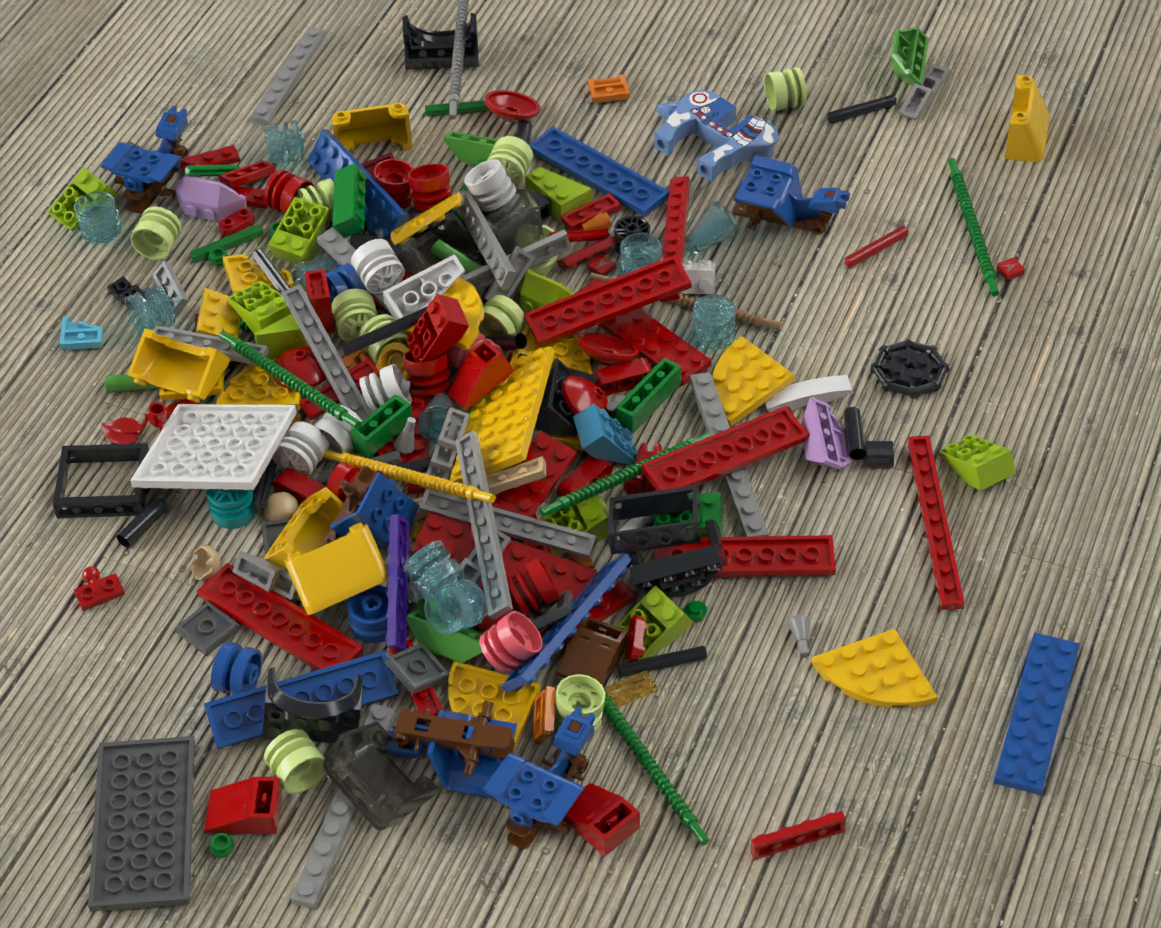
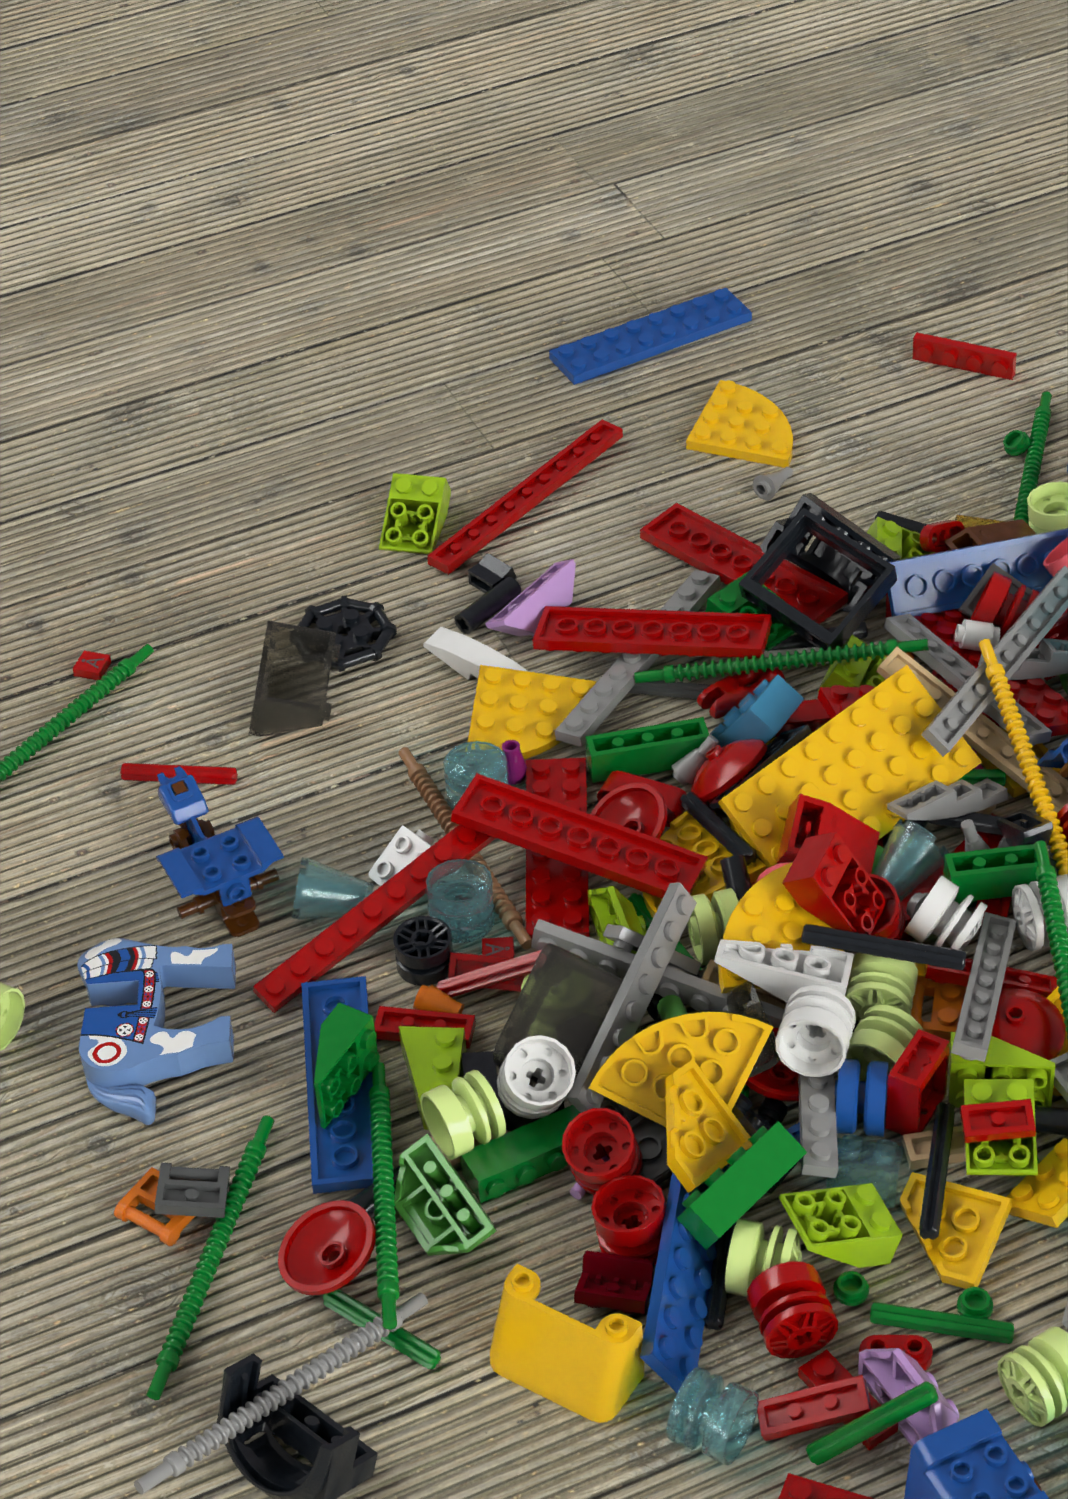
camera: 135 degrees left, 5 degrees down
(257, 287) = (997, 1121): none -> red plate
(382, 448) = (1024, 828): none -> black slope
(389, 205) = (698, 1127): none -> yellow plate
(505, 125) = (384, 1197): none -> green hose
(527, 553) = (972, 632): none -> white brick
(574, 100) = (210, 1259): none -> green hose
(592, 86) = (192, 1191): none -> dark grey plate
(593, 152) = (343, 1059): none -> green slope
(679, 775) = (1016, 442): none -> green plate
(713, 347) = (515, 762): none -> magenta cone
(880, 308) = (293, 679): none -> clear smoke windscreen

